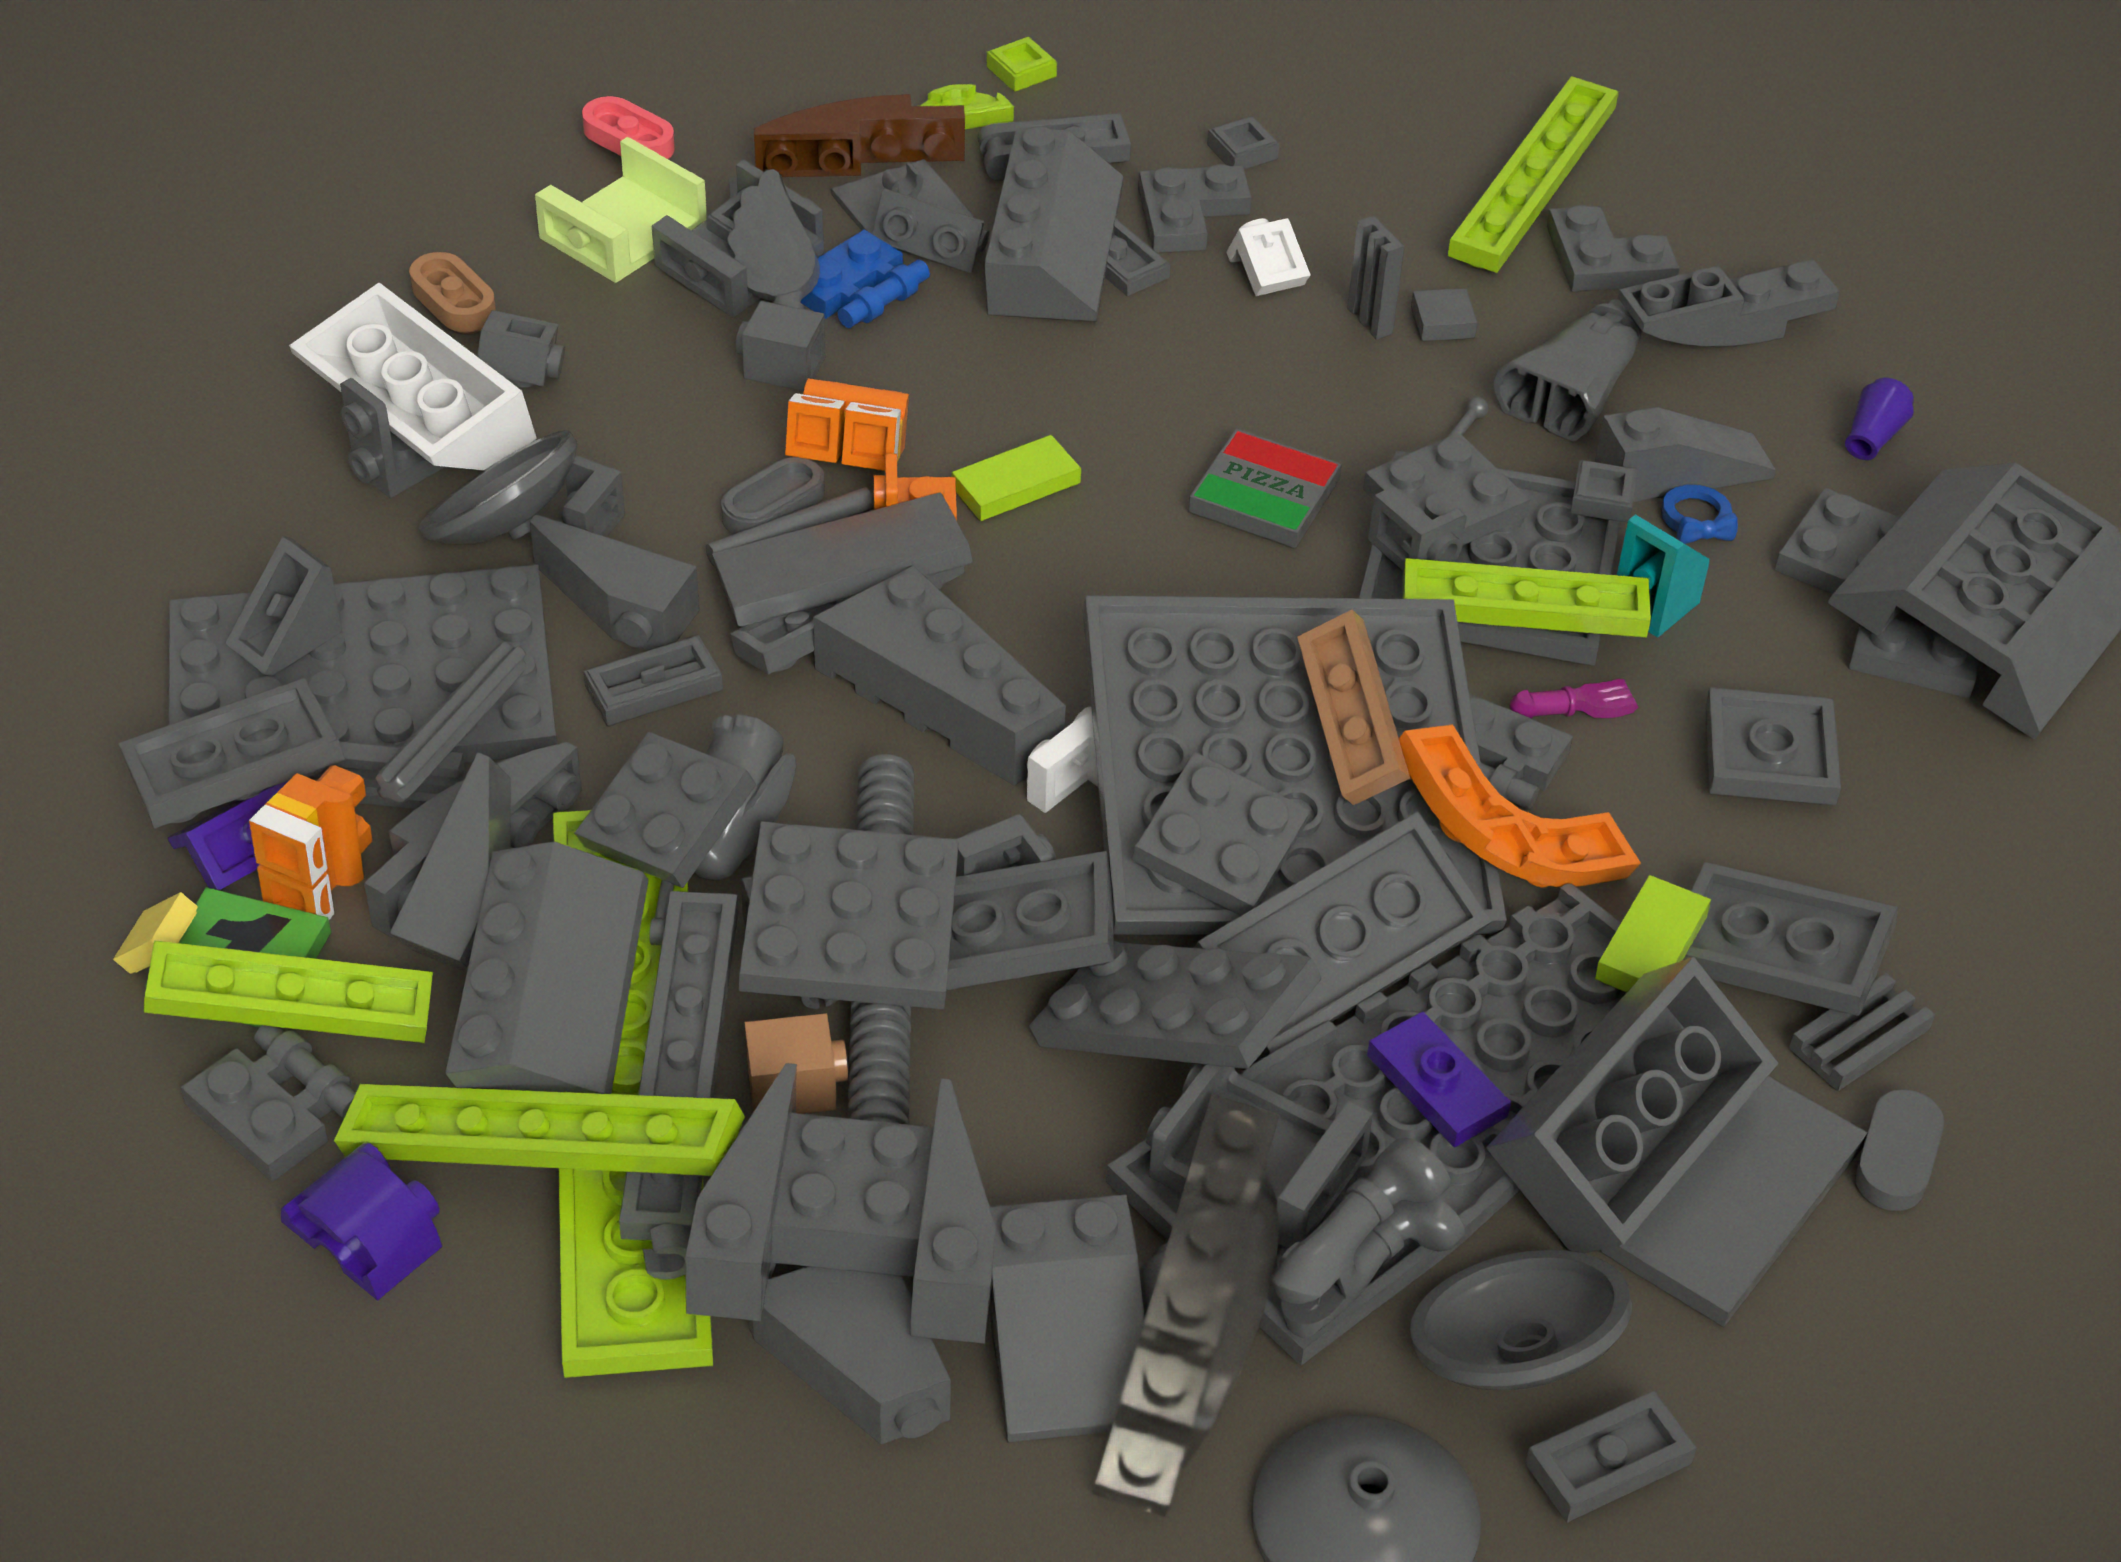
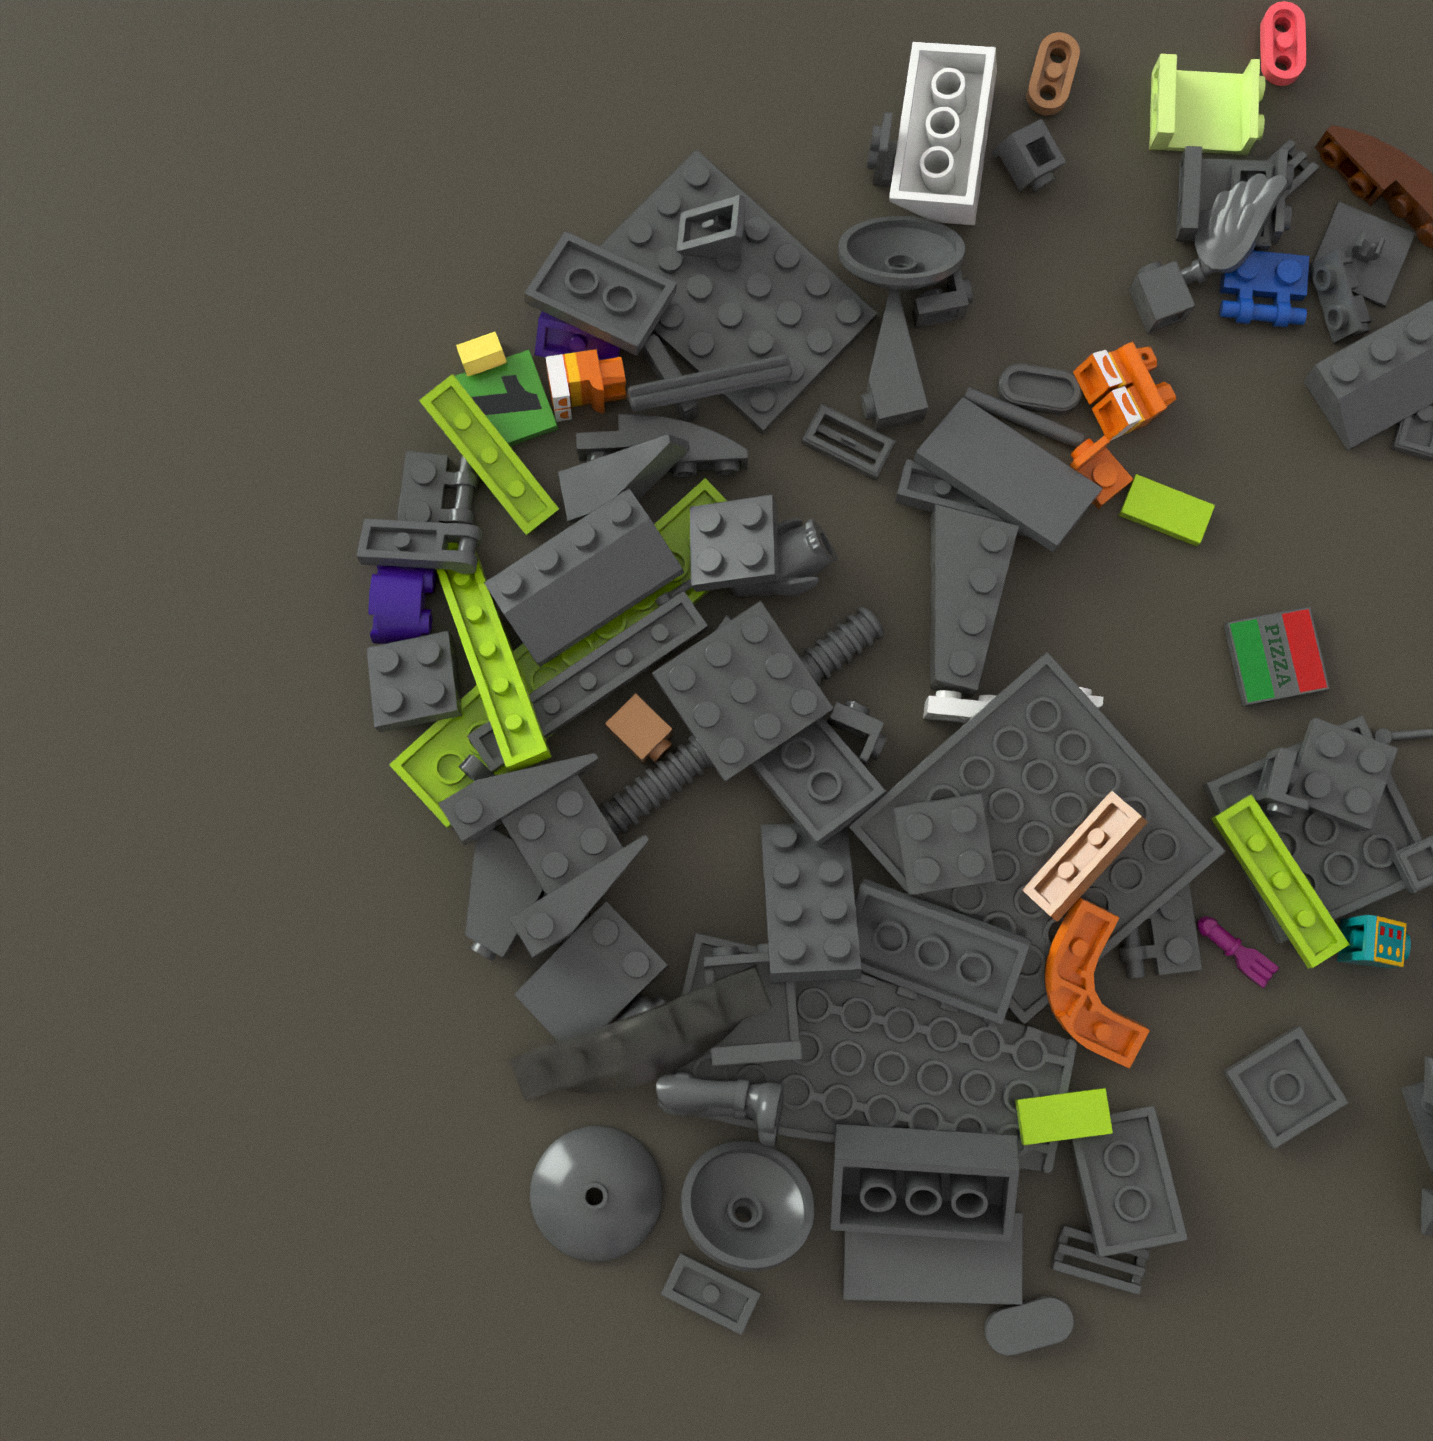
camera: 55 degrees right, 35 degrees up
(318, 1128) = (419, 545): none -> dark grey plate
(482, 1264) = (414, 681): none -> dark grey plate
(1438, 1079) = (874, 1064): dark purple plate -> none

